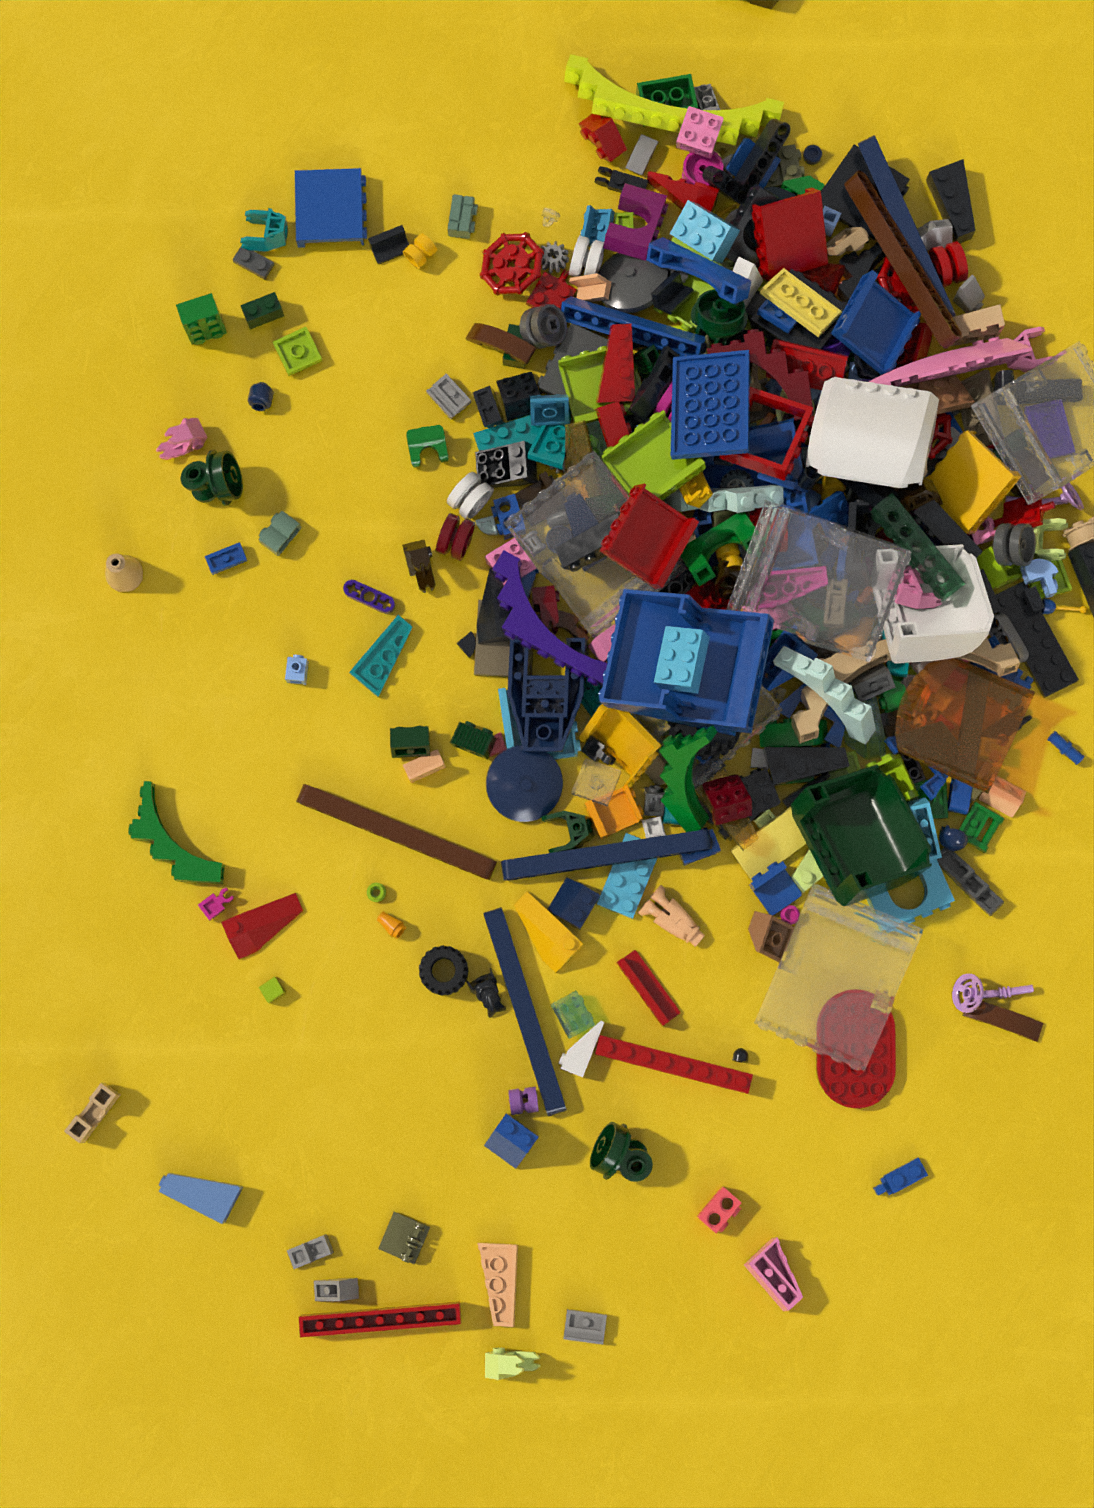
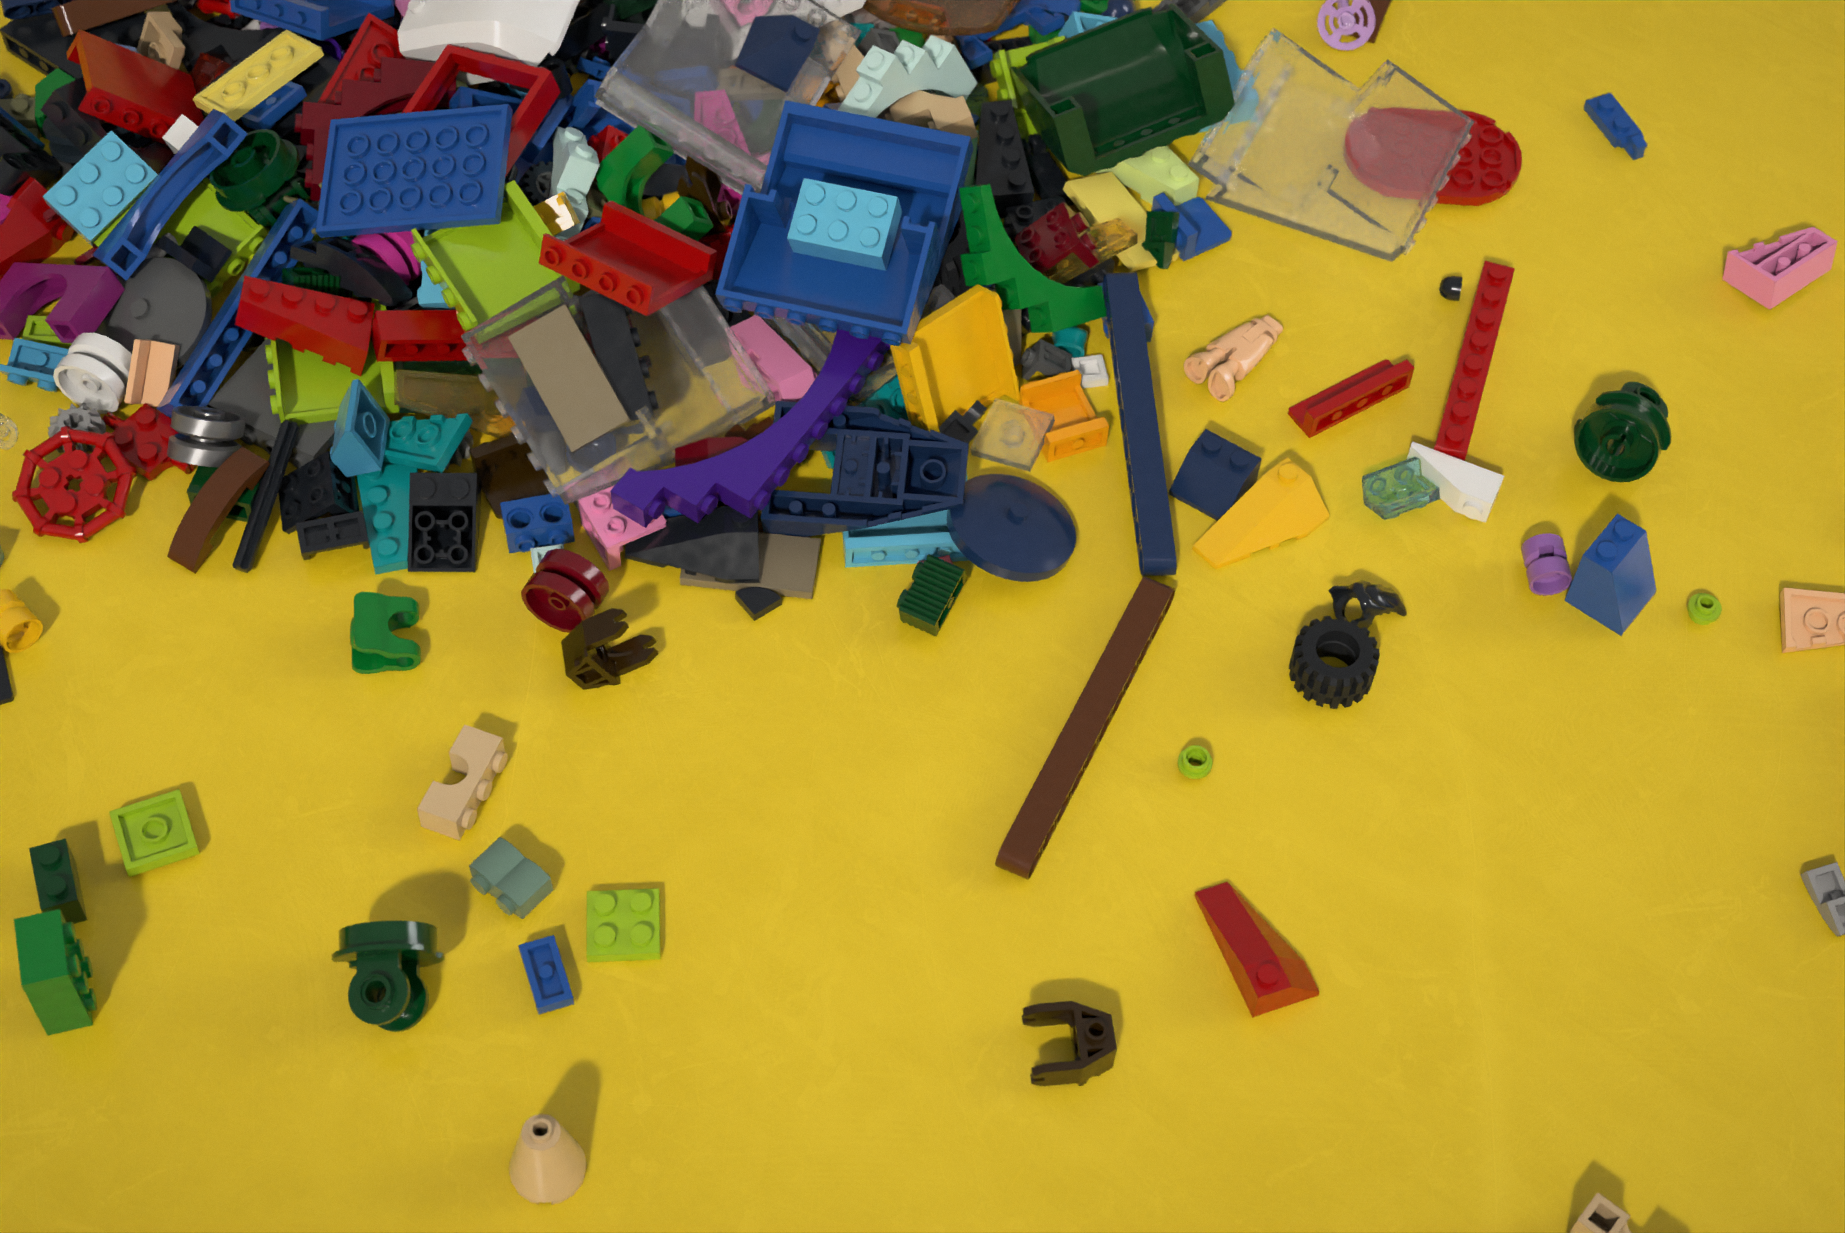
camera: 90 degrees left, 25 degrees down
(150, 828) = (1108, 1106): green arch -> none
(184, 439) = (290, 1034): bright pink piece -> none
(203, 1195) = (1761, 1062): medium blue slope -> none
(206, 832) = (1091, 1042): none -> dark brown piece
(213, 905) = (1218, 1026): dark pink plate -> none
(259, 594) = (623, 925): none -> lime plate
(260, 396) = (232, 897): dark blue head -> none
(272, 990) = (1376, 936): lime slope -> none
(296, 670) = (779, 862): light blue brick -> none
(350, 507) = (454, 807): none -> tan arch
(354, 595) = (651, 759): dark purple beam -> none
(380, 658) = (777, 738): teal wing -> none
(392, 925) = (1255, 738): light orange cone -> none
(404, 1238) = (1792, 754): olive hinge -> none
(410, 741) = (928, 688): dark green brick -> none
(424, 766) = (973, 675): light nougat panel -> none
(448, 396) = (297, 599): light grey plate -> none
(470, 495) = (493, 564): white wheel -> none
(503, 1189) = (1704, 615): none -> lime plate
(513, 367) = (266, 496): none -> black axle
(524, 1011) = (1388, 557): dark blue beam -> none
(575, 516) = (569, 378): none -> dark tan tile
(577, 836) = (1092, 458): dark green piece -> none
(626, 884) = (1180, 409): medium azure plate -> none
(715, 1206) = (1691, 329): coral brick -> none
(754, 868) = (1161, 236): none -> dark green slope
(770, 935) = (1259, 237): medium nougat slope -> none
(790, 914) = (1231, 213): dark pink plate -> none
(840, 608) = (777, 49): none -> dark blue slope

